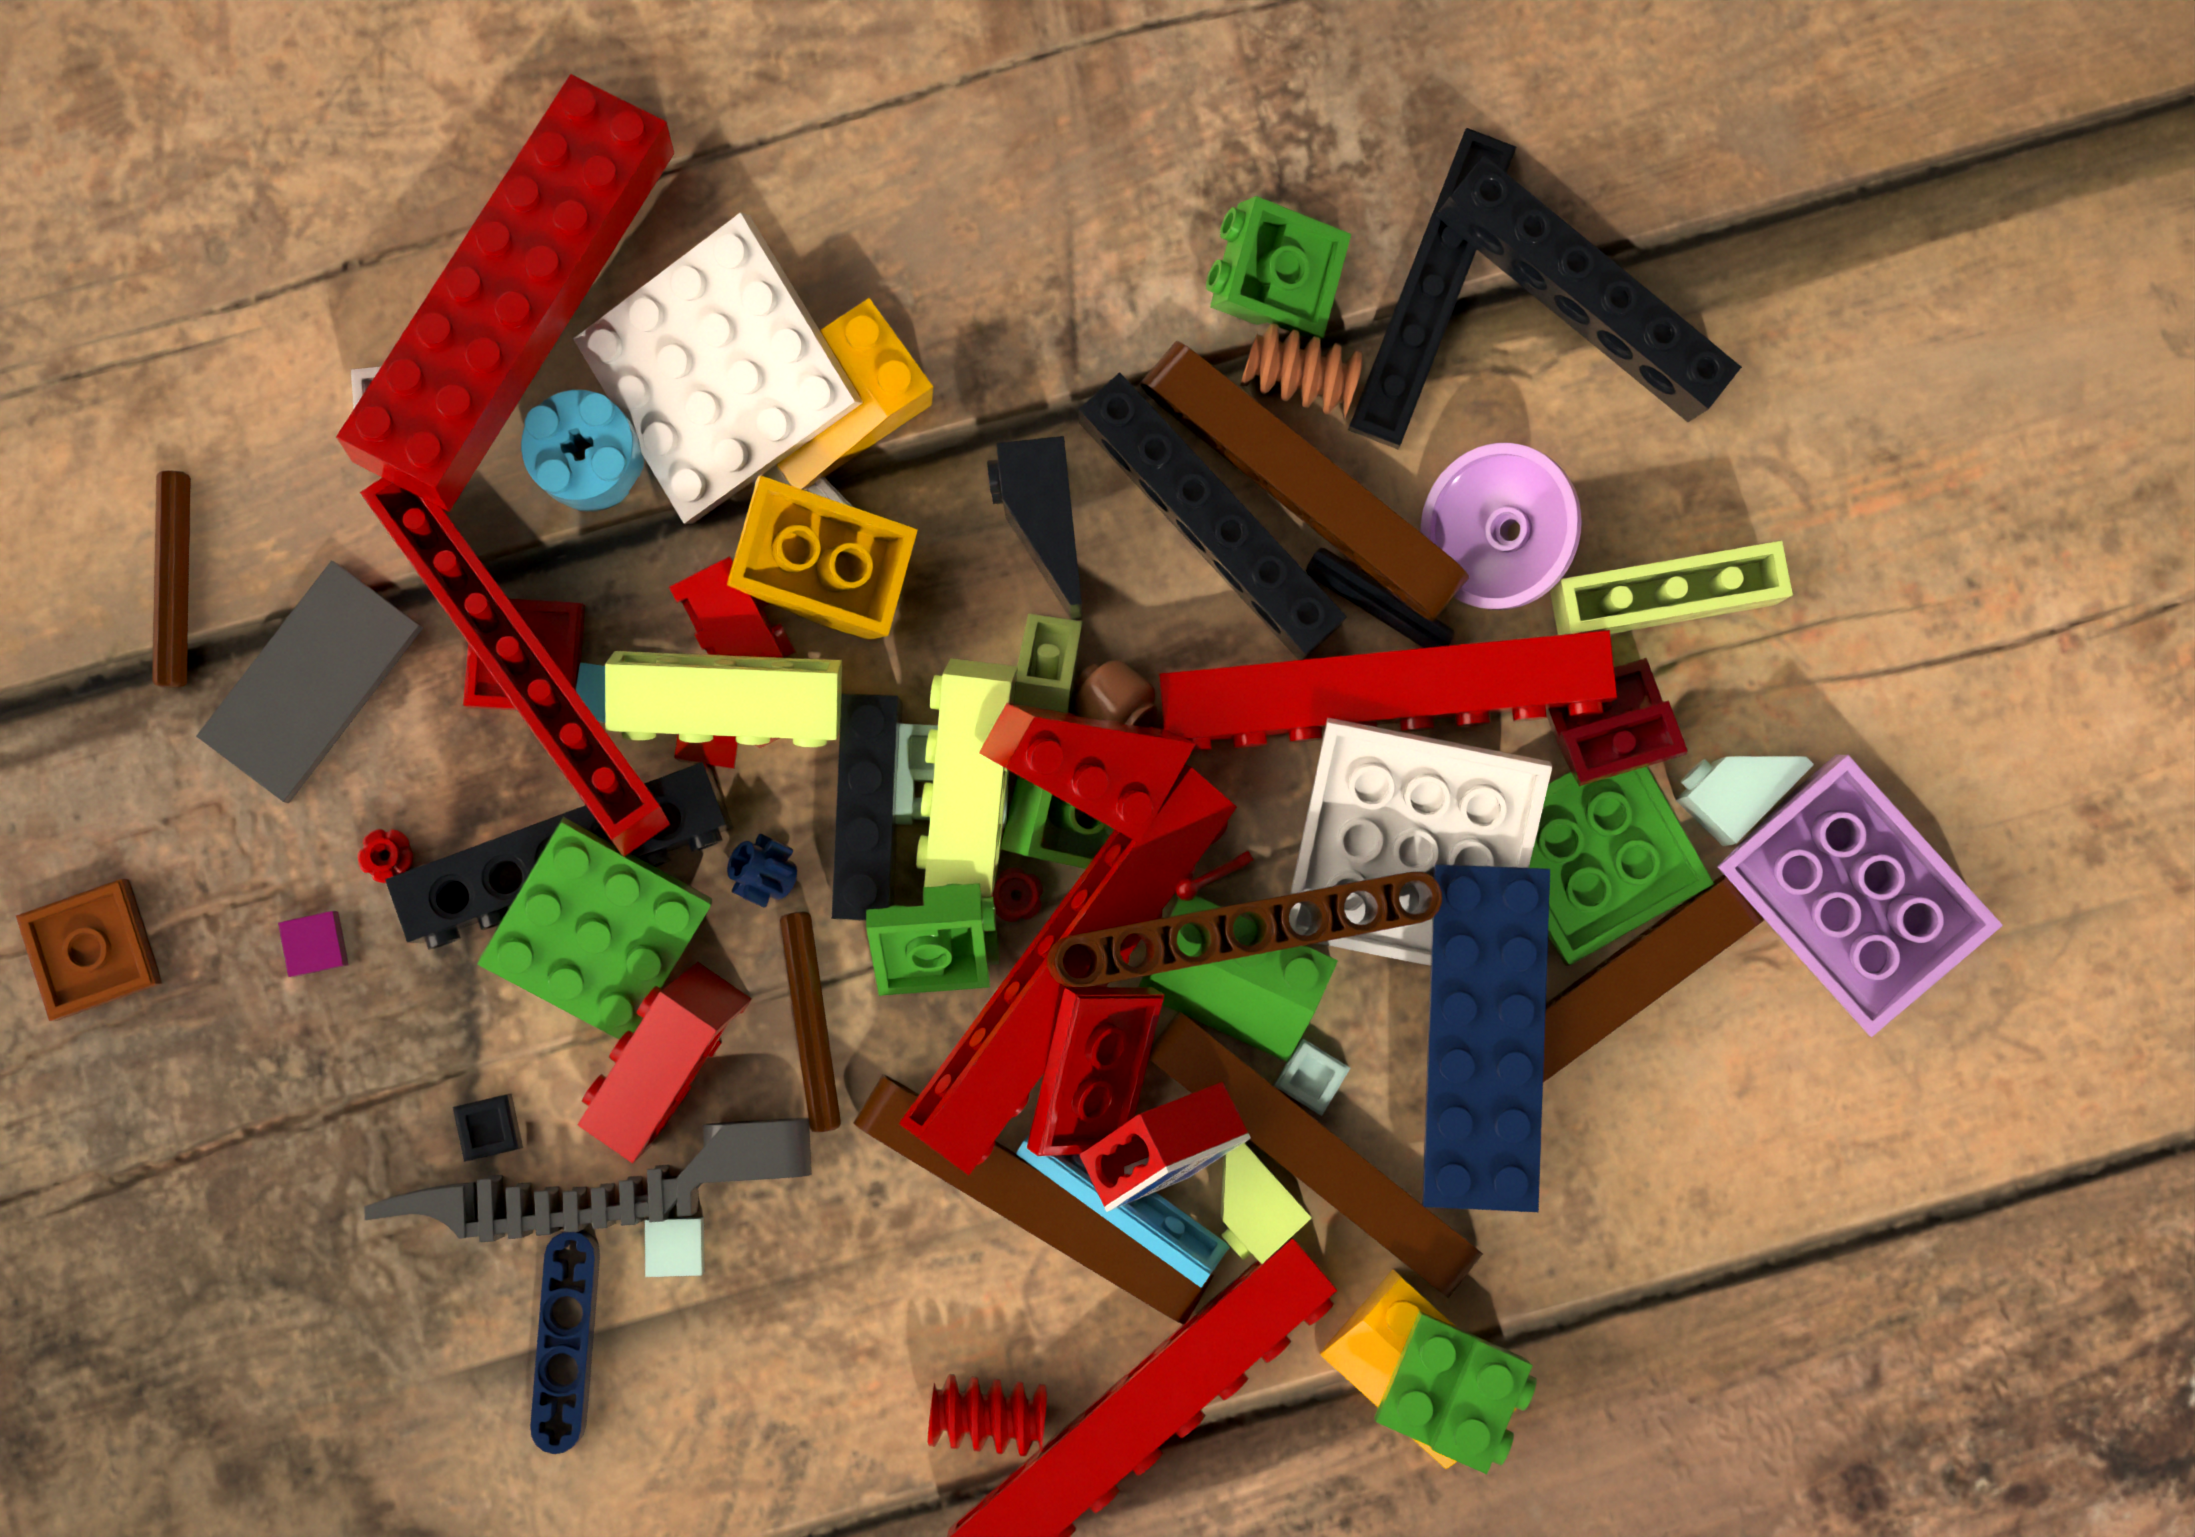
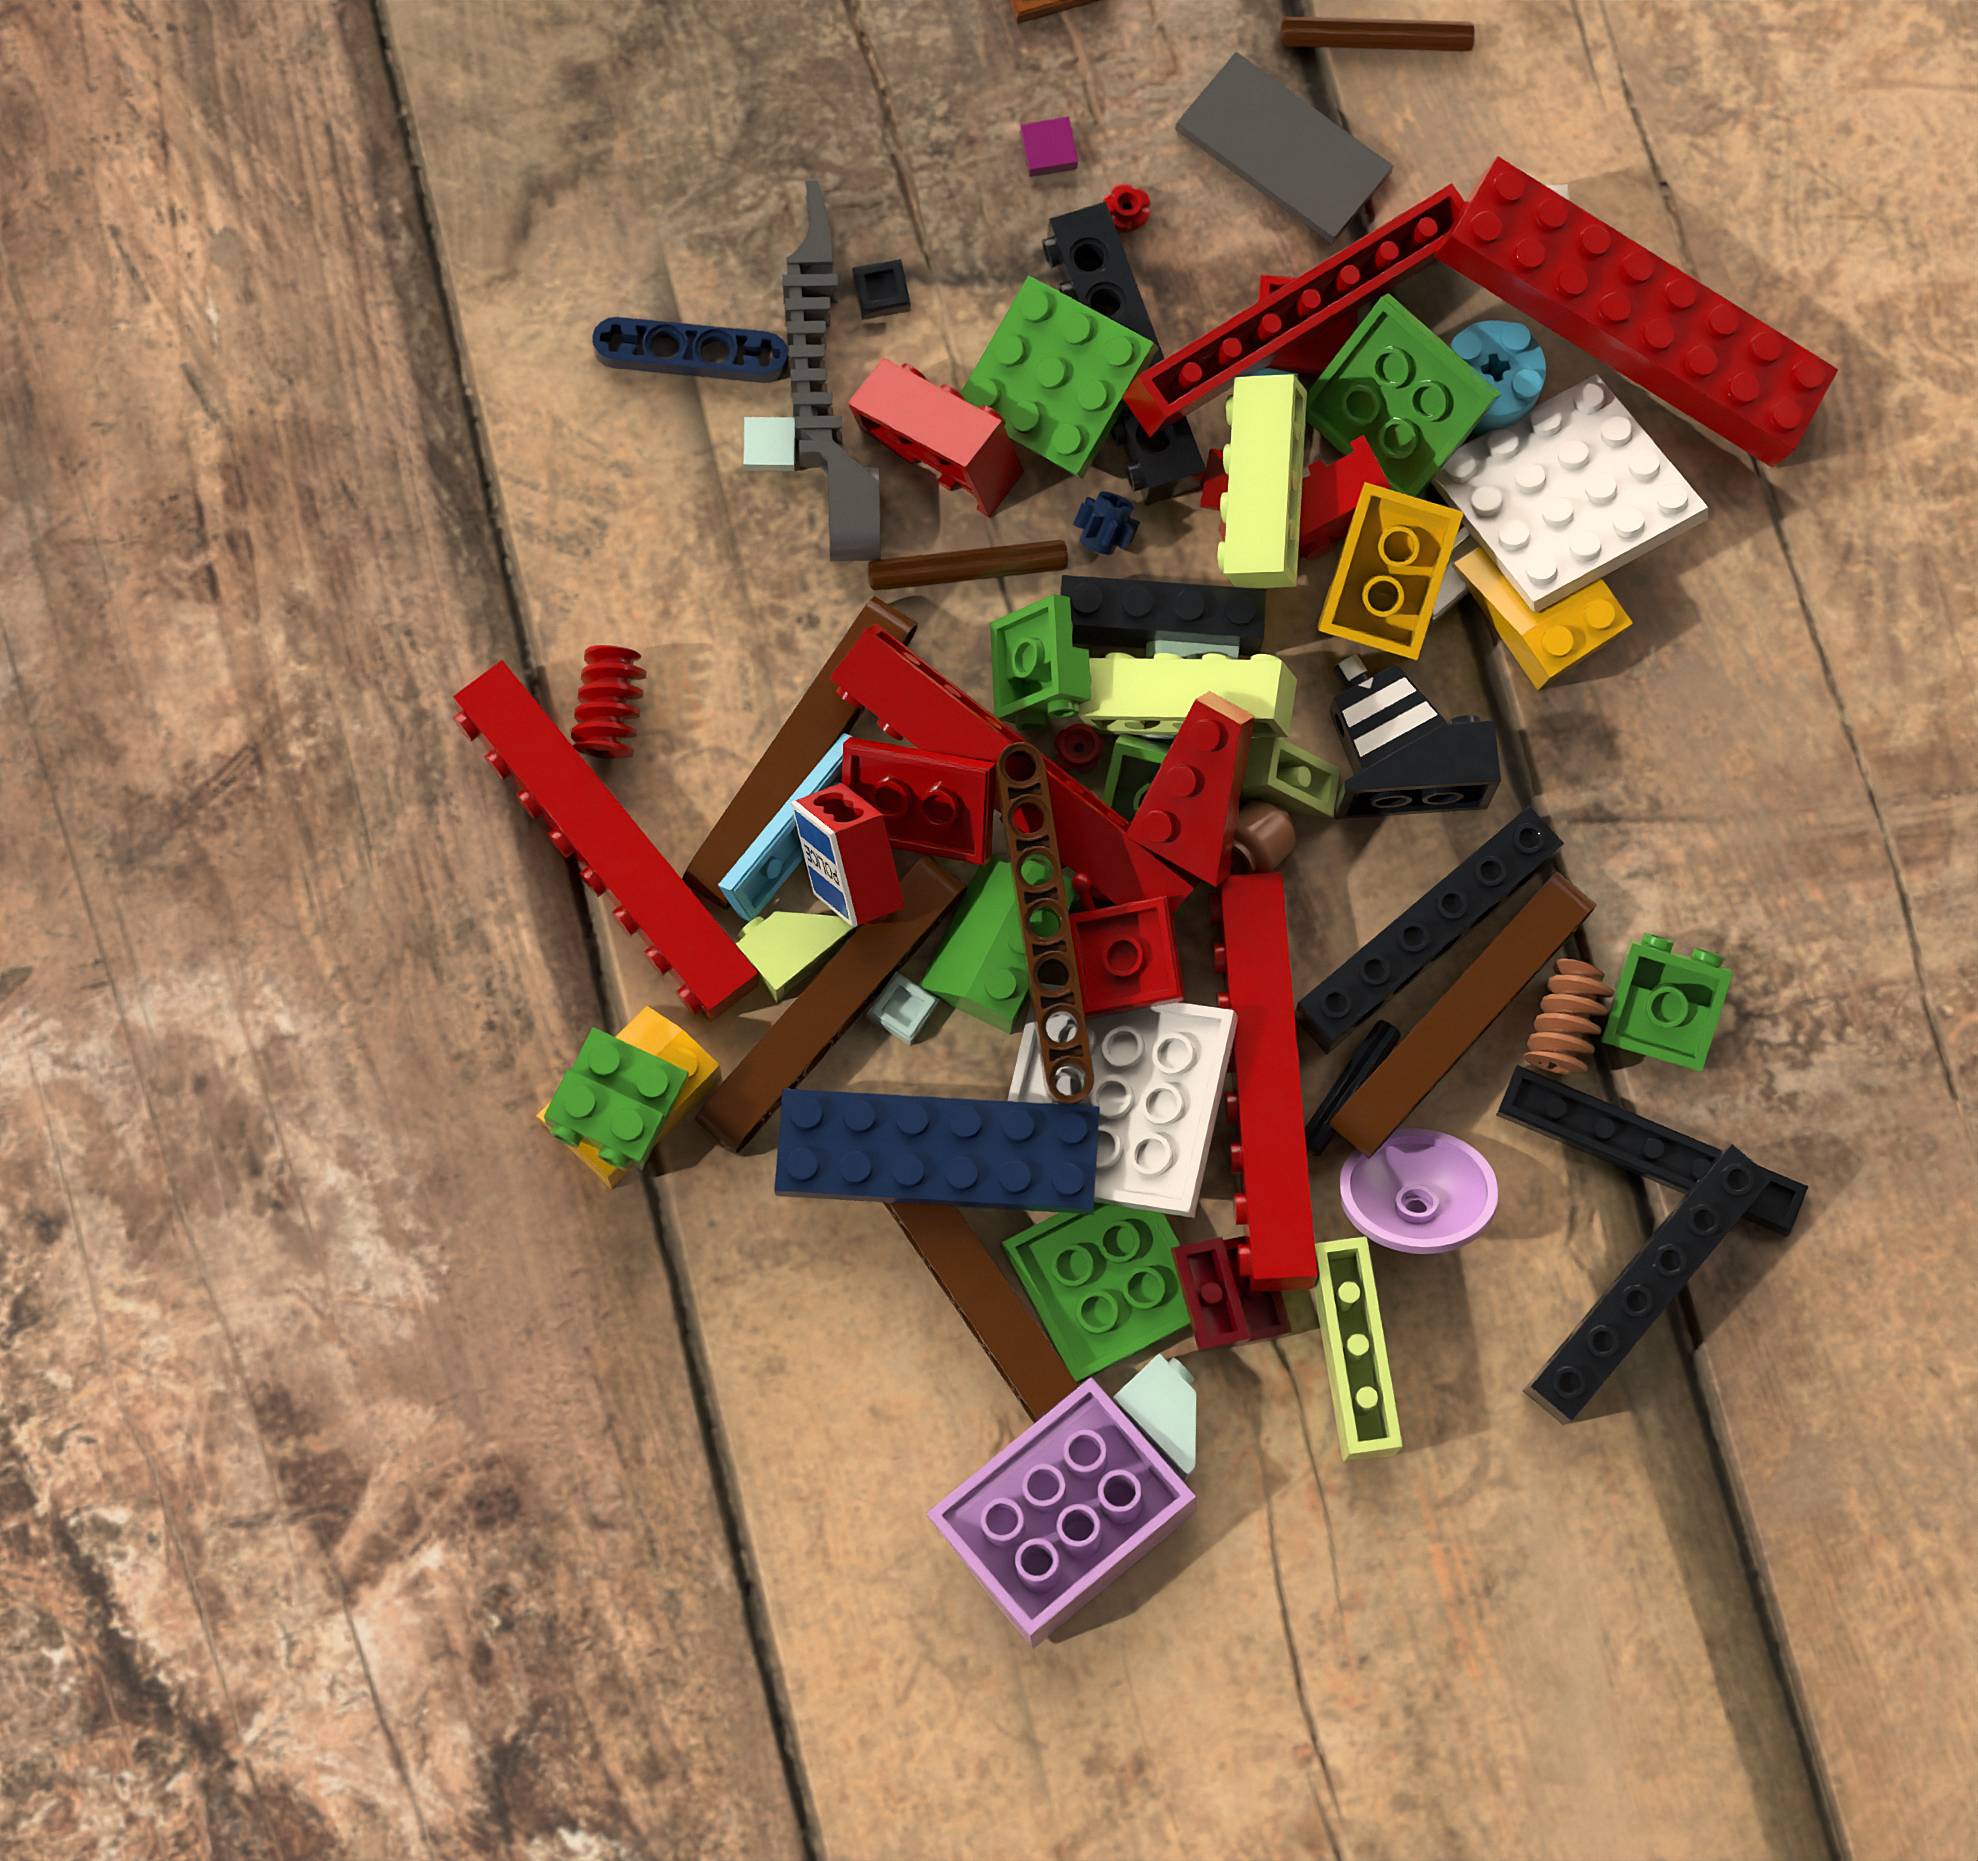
camera: 85 degrees right, 10 degrees down
(615, 549) = (1402, 394): none -> bright green plate
(975, 569) = (1378, 712): none -> torso
(1267, 840) = (1127, 957): none -> red tile

